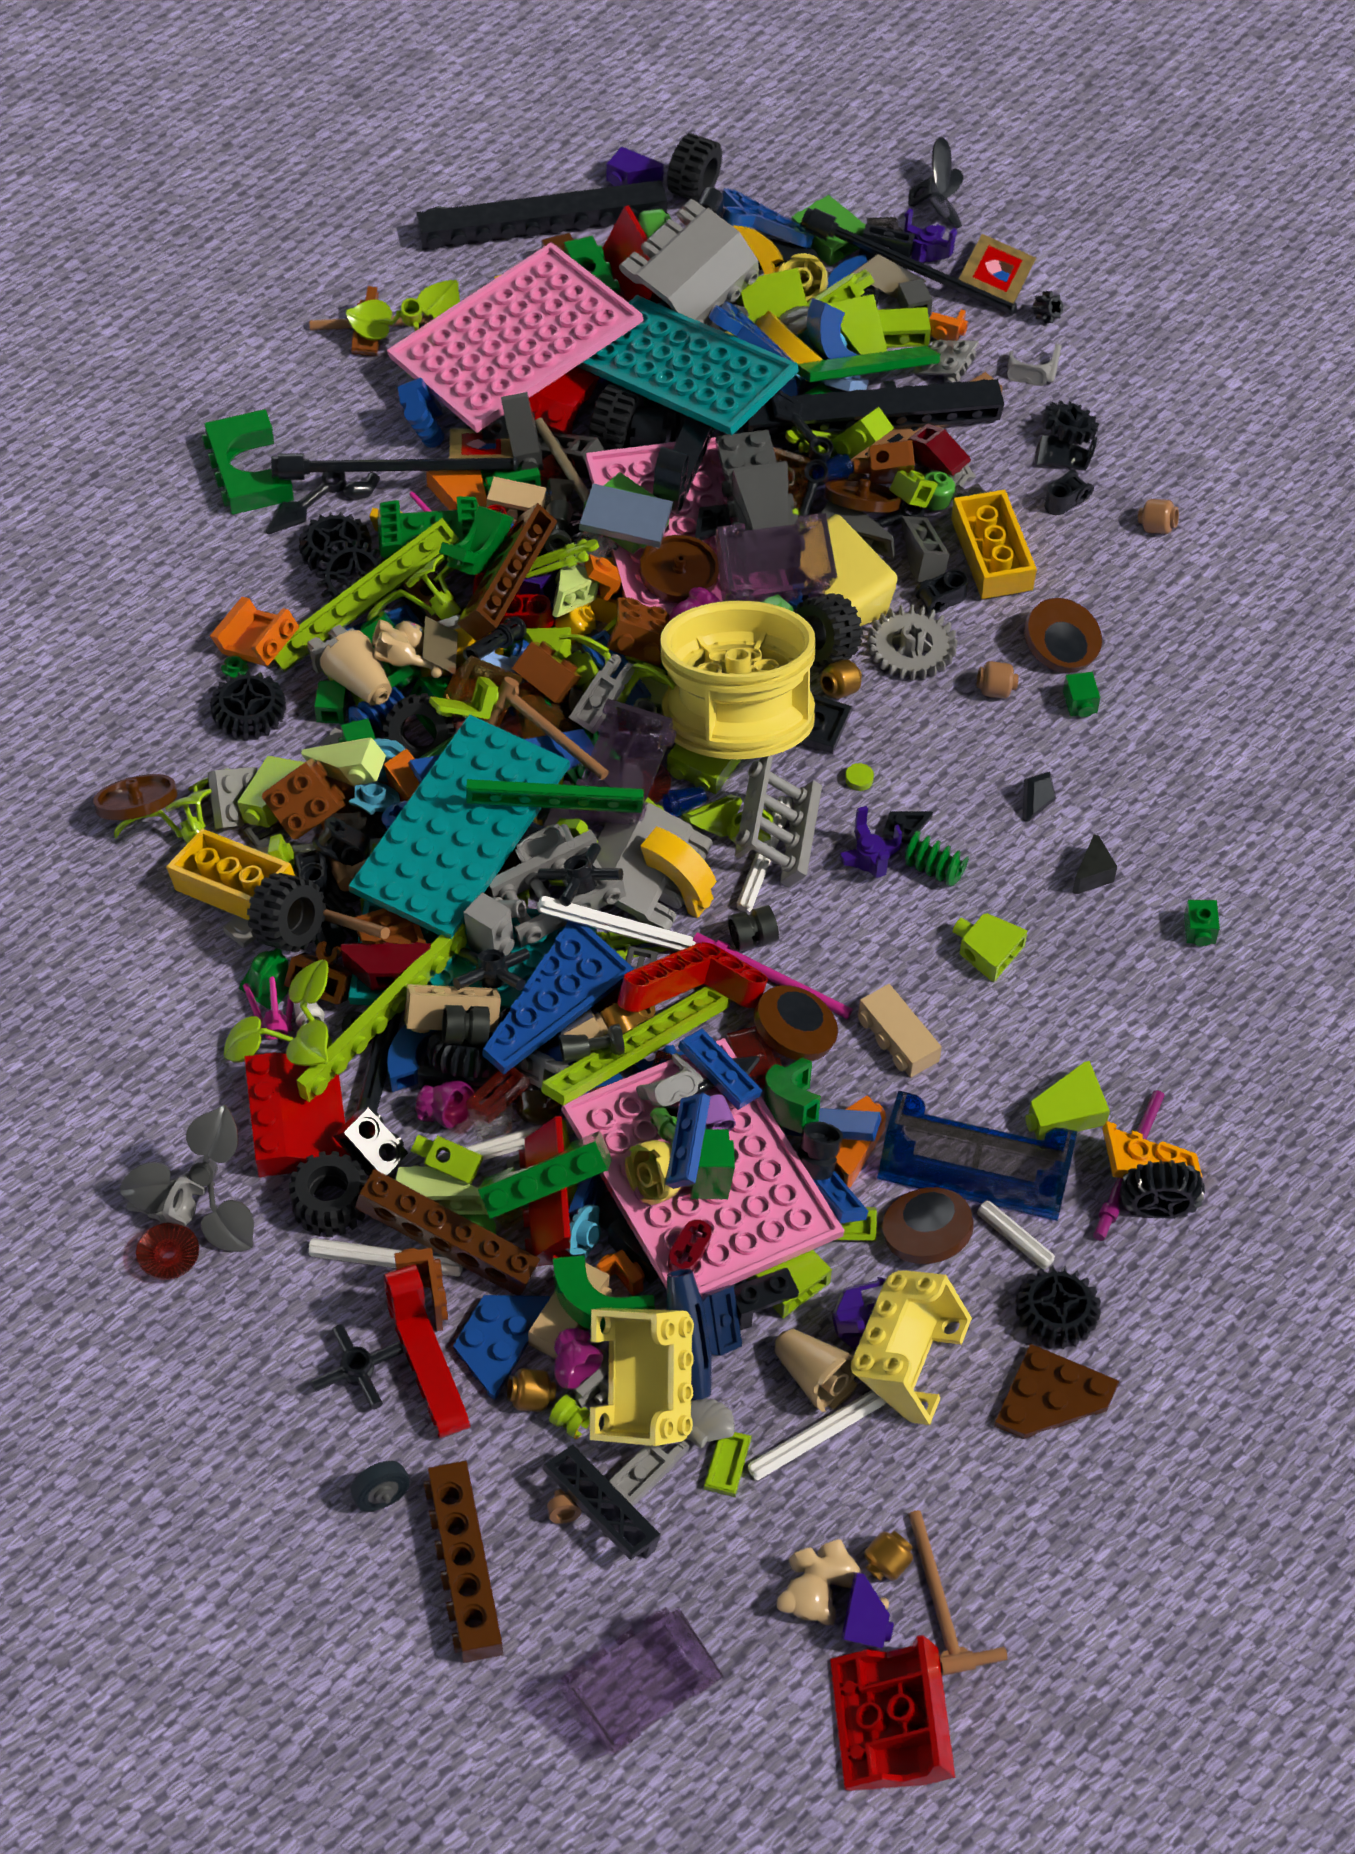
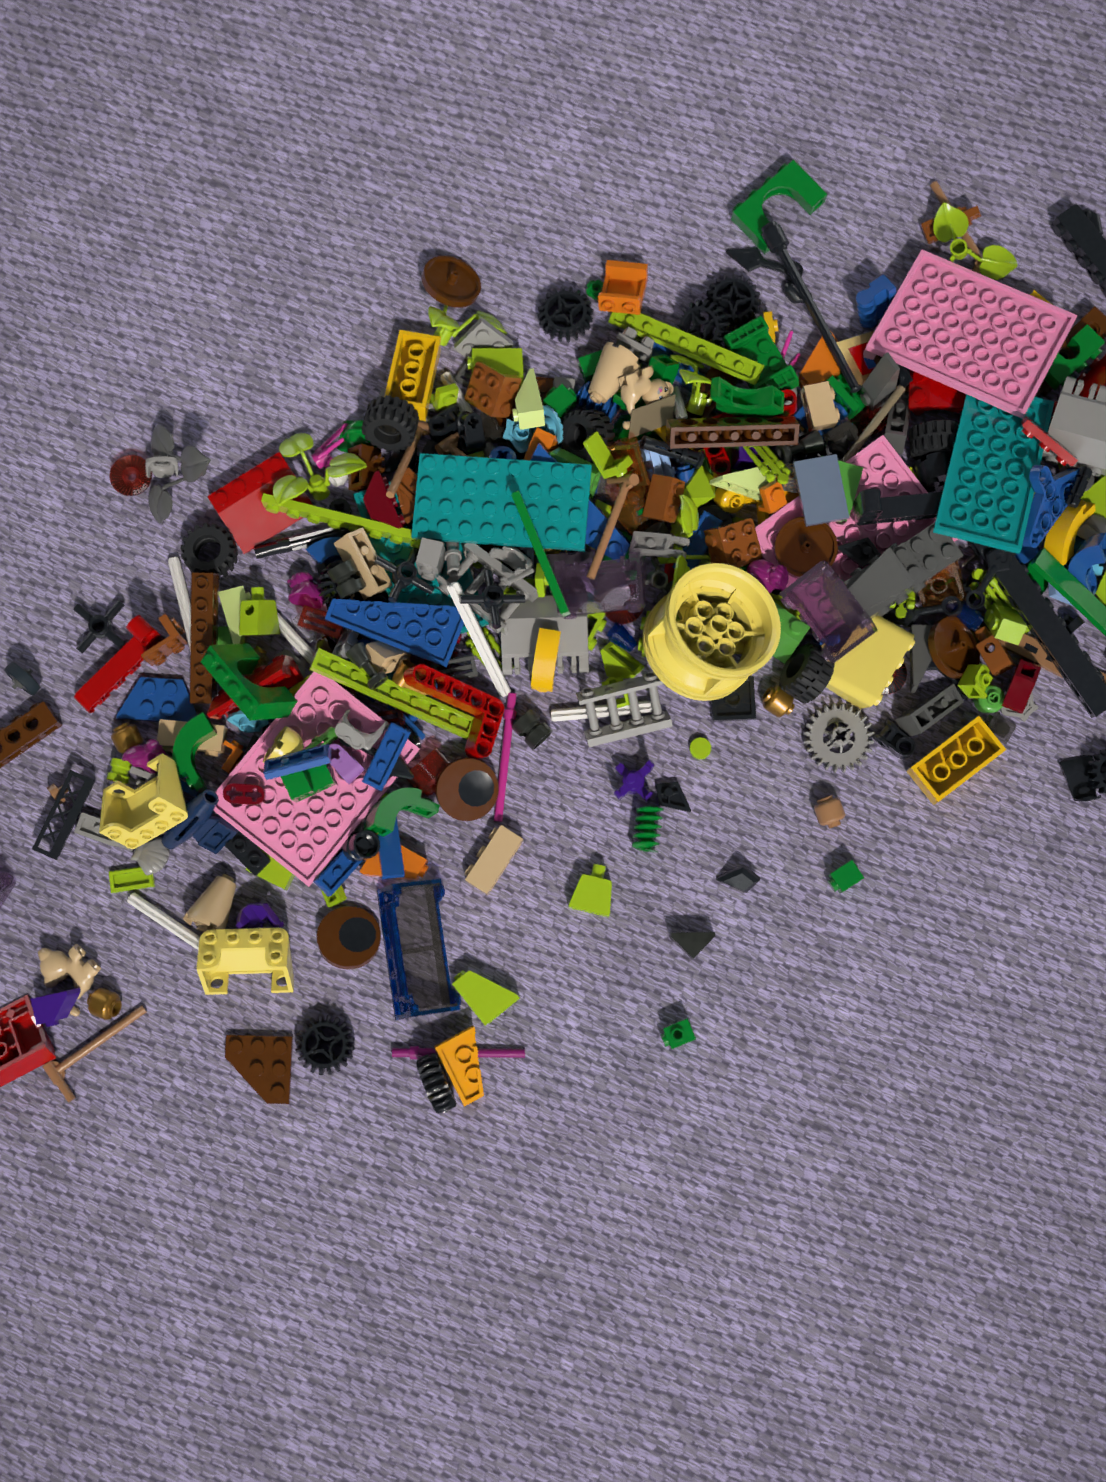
camera: 70 degrees right, 25 degrees up
(366, 1149) = (248, 559): brick -> none
(684, 305) = (1047, 442): none -> red tile
(746, 308) = (1079, 487): none -> black axle
(1015, 1234) = (371, 997): white axle -> none
(1063, 635) = (894, 843): reddish brown piece -> none
(1067, 493) = (1043, 797): black piece -> none
(1158, 516) = (1048, 872): medium nougat head -> none

